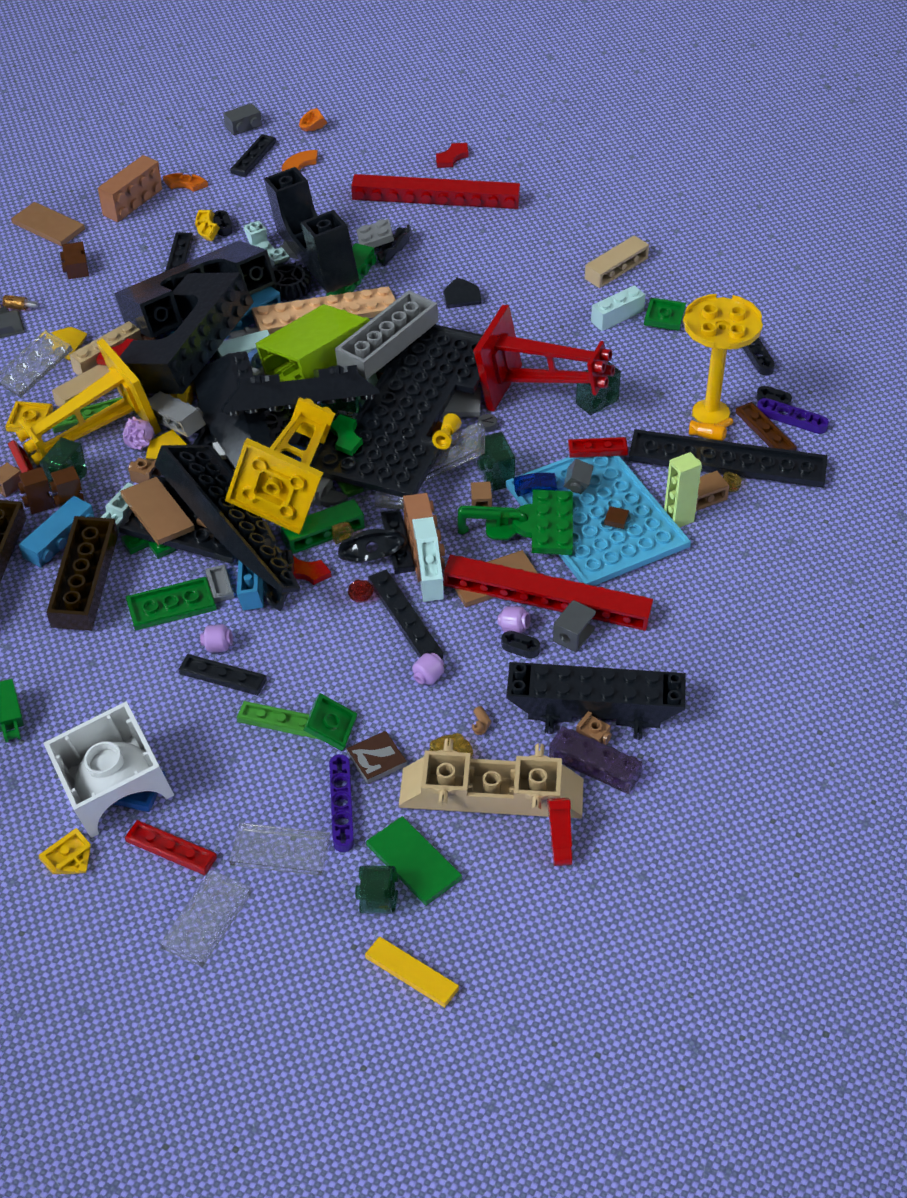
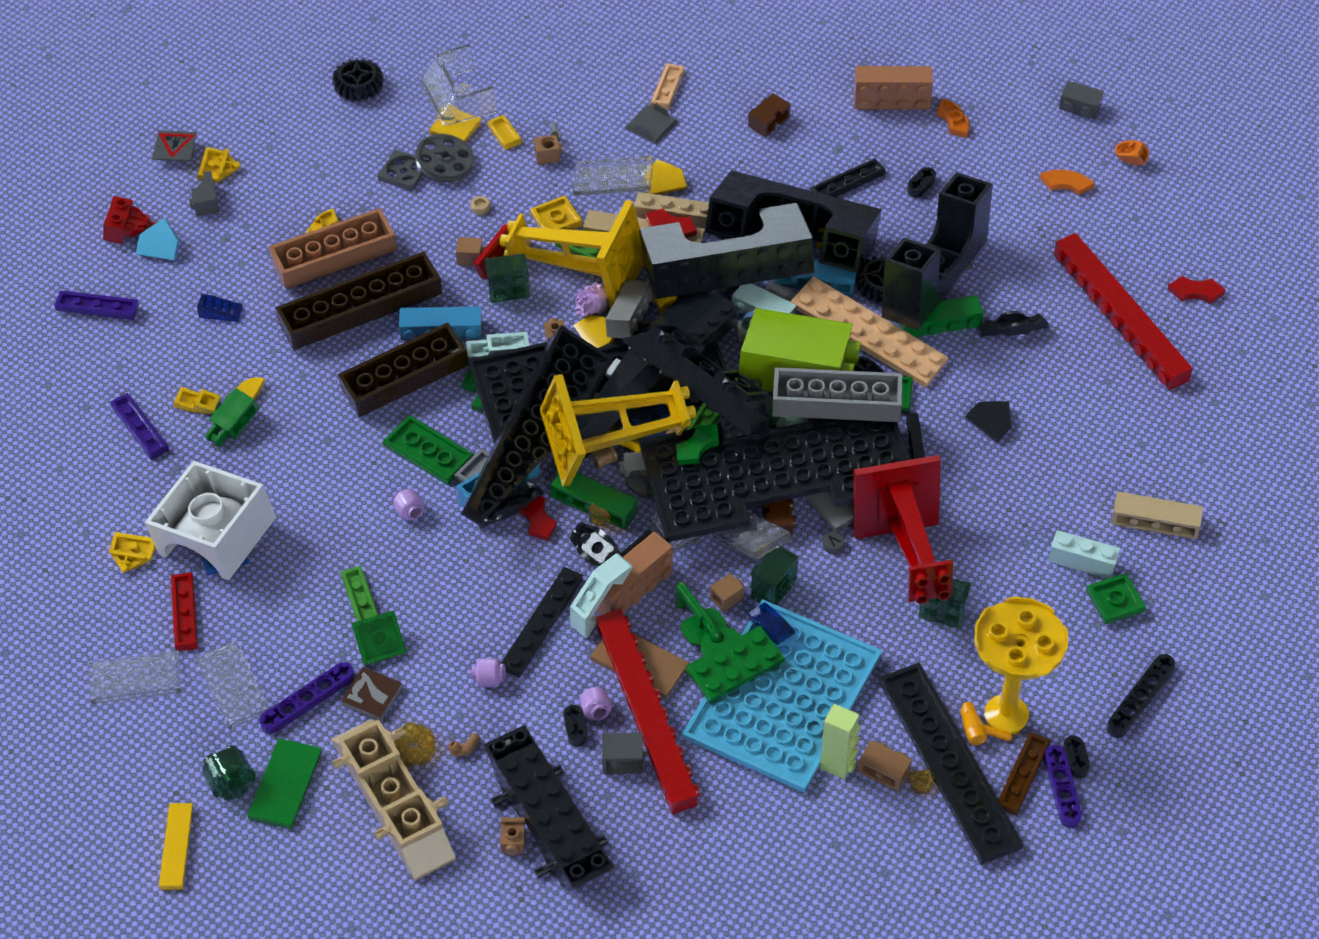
camera: 55 degrees right, 5 degrees up
(18, 302) = (681, 114): clear orange piece -> none
(35, 490) = (465, 278): reddish brown brick -> none
(48, 223) = (802, 65): medium nougat tile -> none
(65, 485) = (483, 294): reddish brown brick -> none
(157, 510) = (505, 372): medium nougat tile -> none
(205, 224) = (904, 172): yellow tile -> none
(222, 674) = (380, 534): black tile -> none
(253, 155) = (1041, 142): black tile -> none
(257, 236) = (918, 225): light aqua slope -> none
(360, 591) = (544, 566): clear red plate -> none
(375, 234) = (1008, 302): light grey plate -> none
(442, 438) = (769, 513): yellow piece -> none
(560, 830) = (376, 867): red leg -> none
(578, 476) = (800, 650): dark grey brick -> none
(596, 759) = (481, 855): clear purple brick -> none
(597, 447) = (865, 646): red tile -> none
(616, 517) = (782, 711): reddish brown tile -> none

